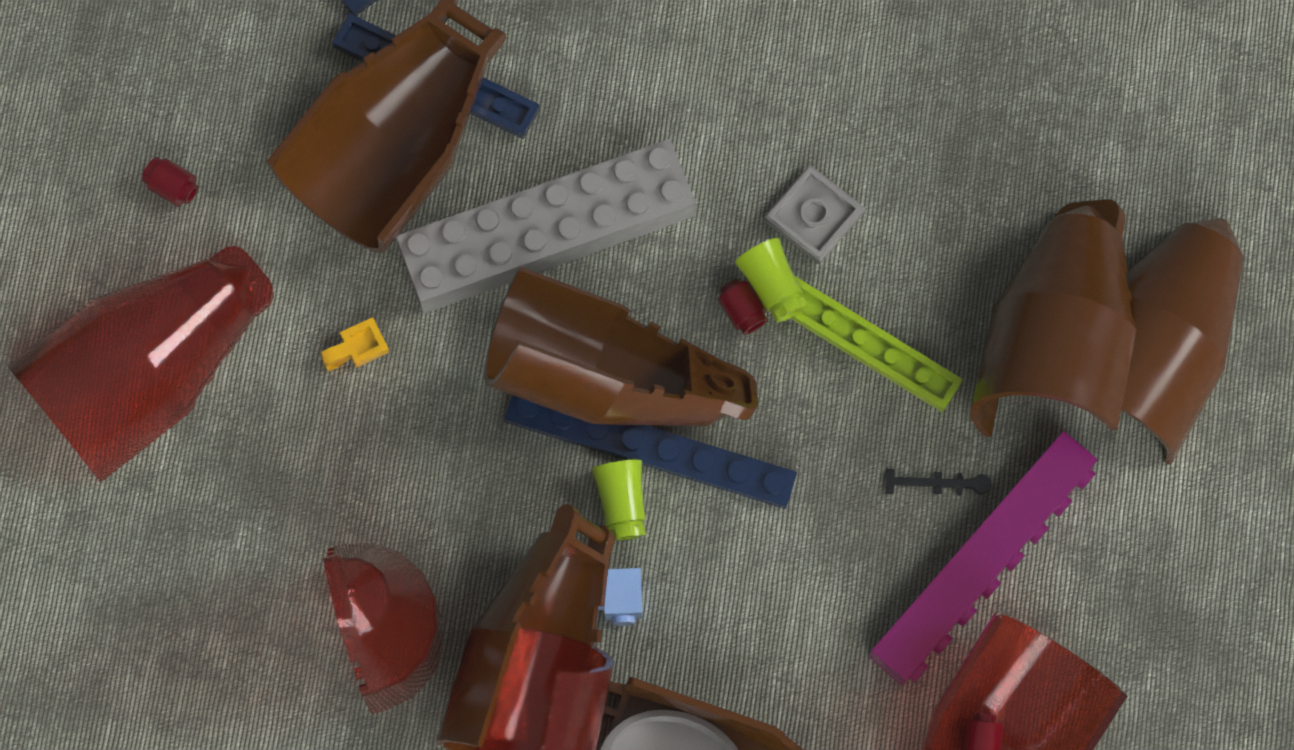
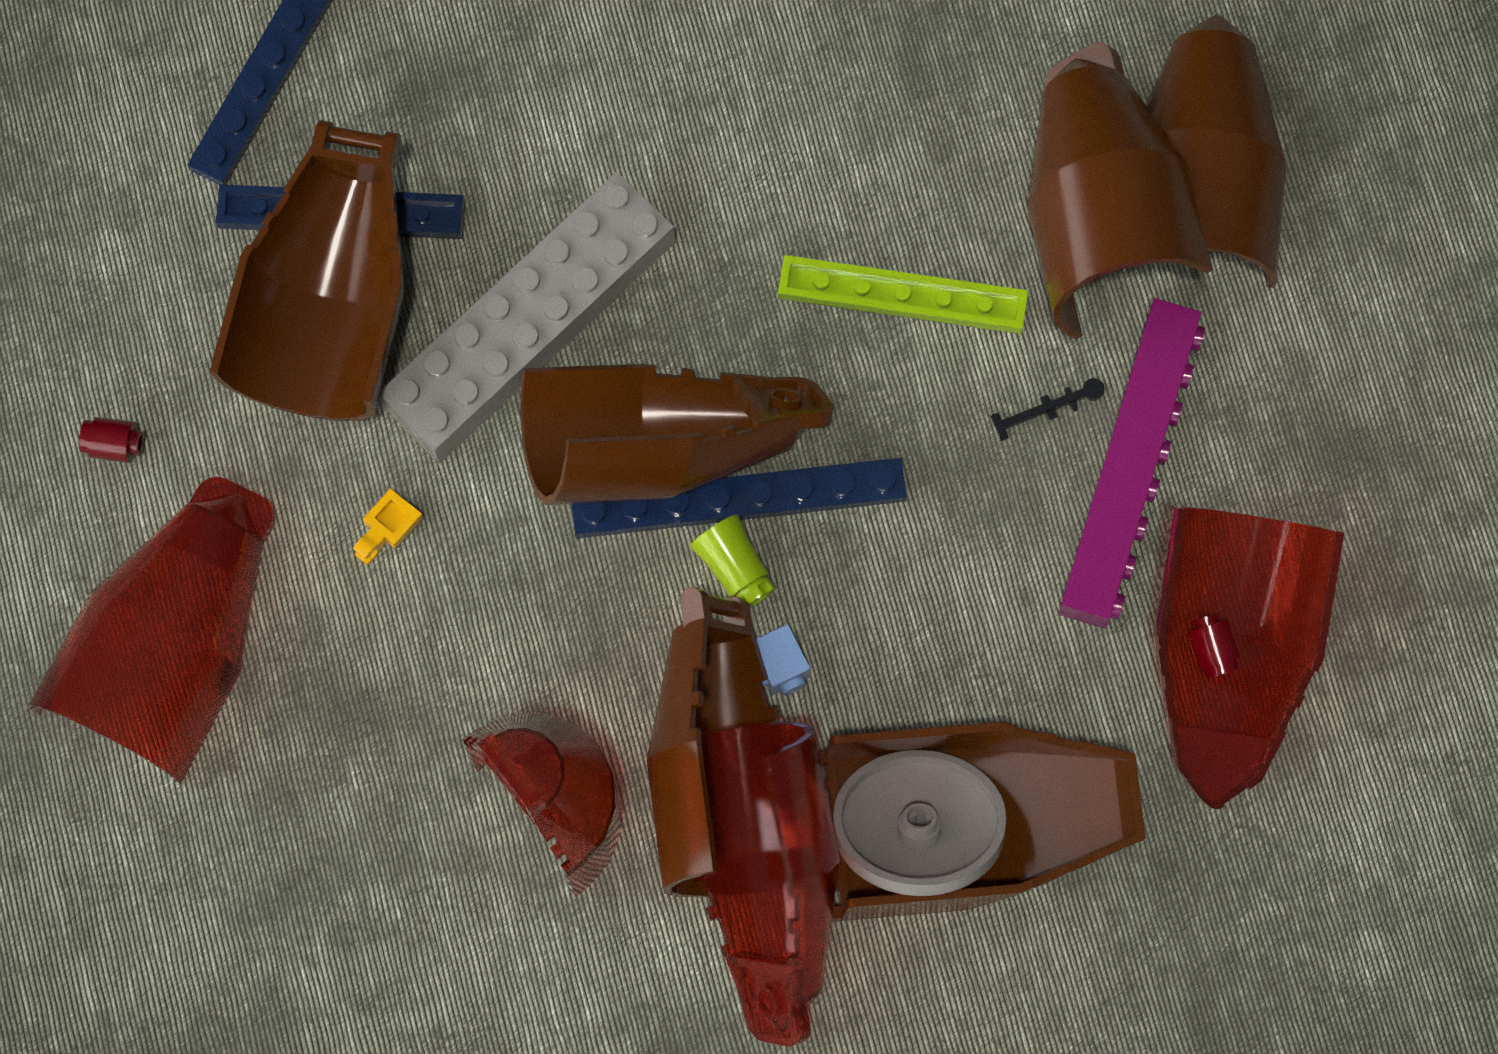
camera: 20 degrees left, 0 degrees up
(743, 306) = (768, 312): dark red brick -> none
(772, 279) = (789, 271): lime plant -> none
(814, 214) = (798, 187): light grey tile -> none

